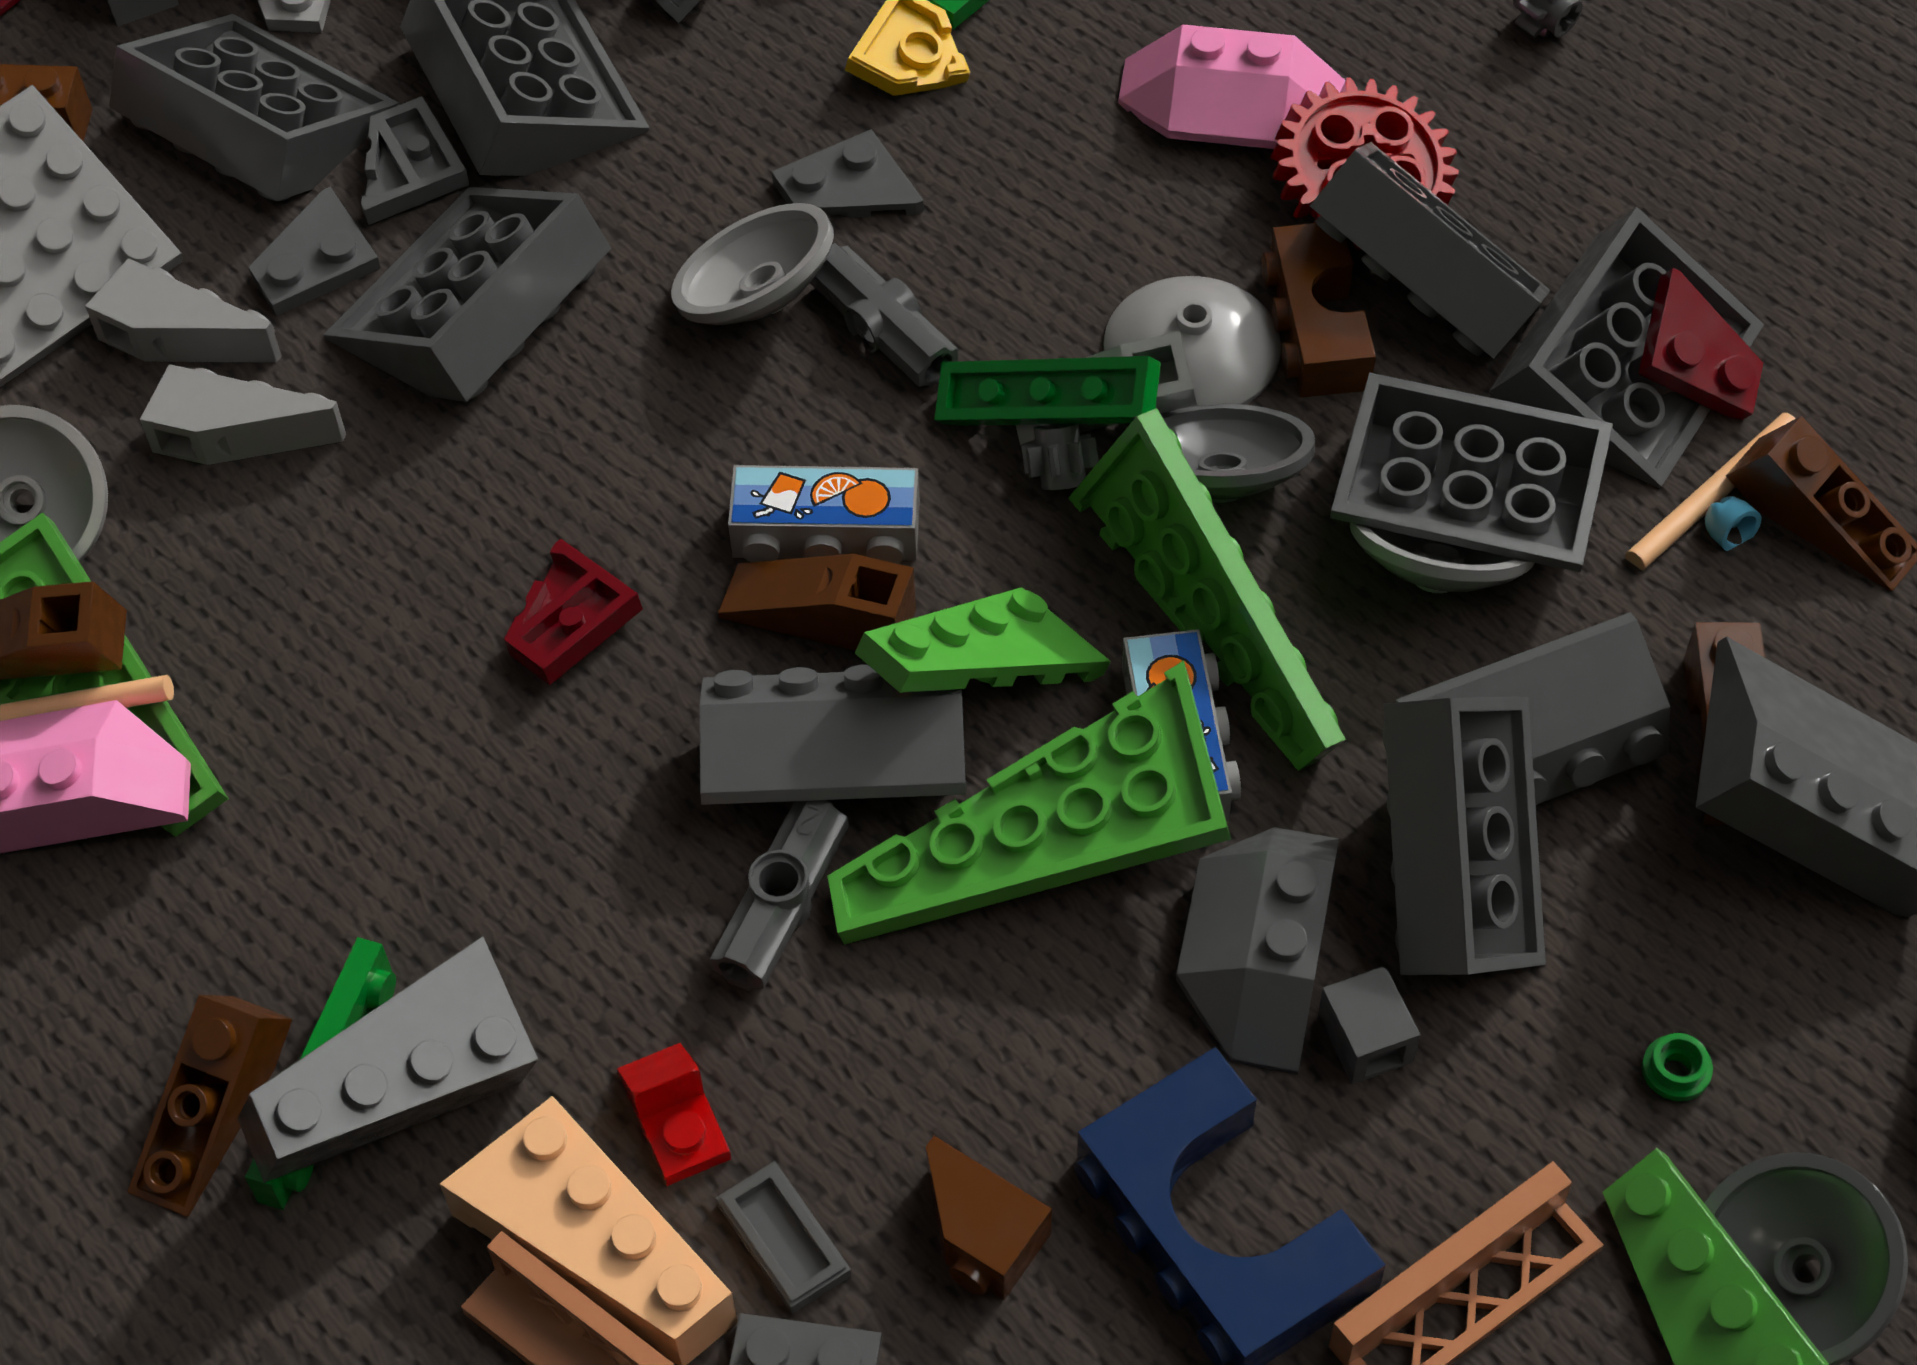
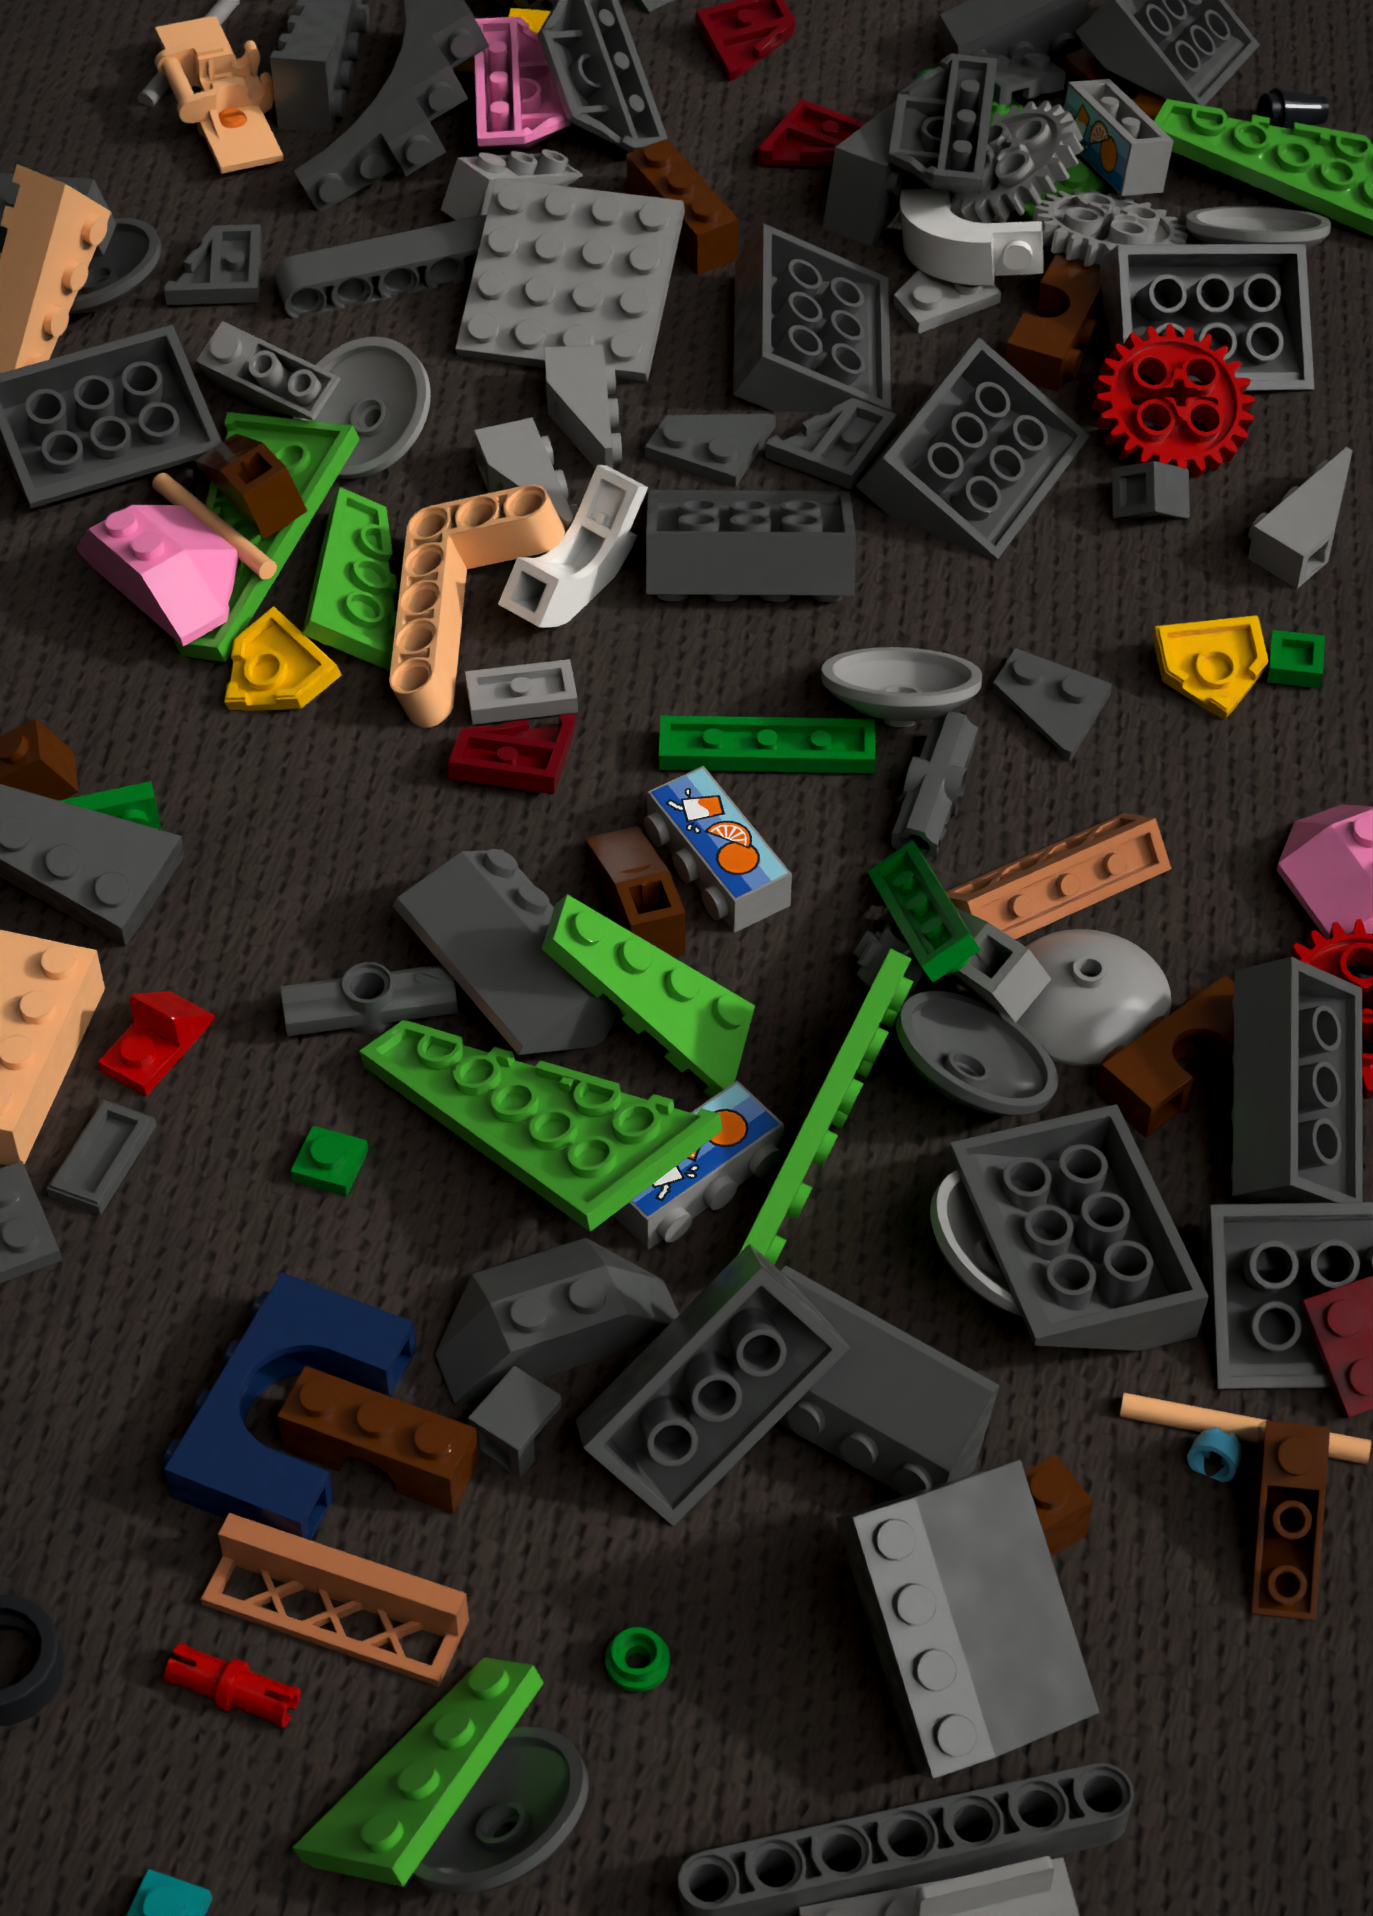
camera: 55 degrees right, 5 degrees down
(232, 629) = (353, 582): none -> bright green wing
(280, 754) = (276, 667): none -> yellow plate
(316, 567) = (437, 552): none -> light nougat beam
(375, 419) = (568, 577): none -> white arch
(494, 567) = (521, 691): none -> light grey plate
(725, 413) = (767, 744): none -> green plate
(940, 1031) = (329, 1160): none -> green plate
(983, 1221) = (180, 1260): reddish brown slope -> none
(1064, 279) = (1066, 875): none -> nougat fence
(1284, 1167) = (419, 1450): none -> reddish brown arch

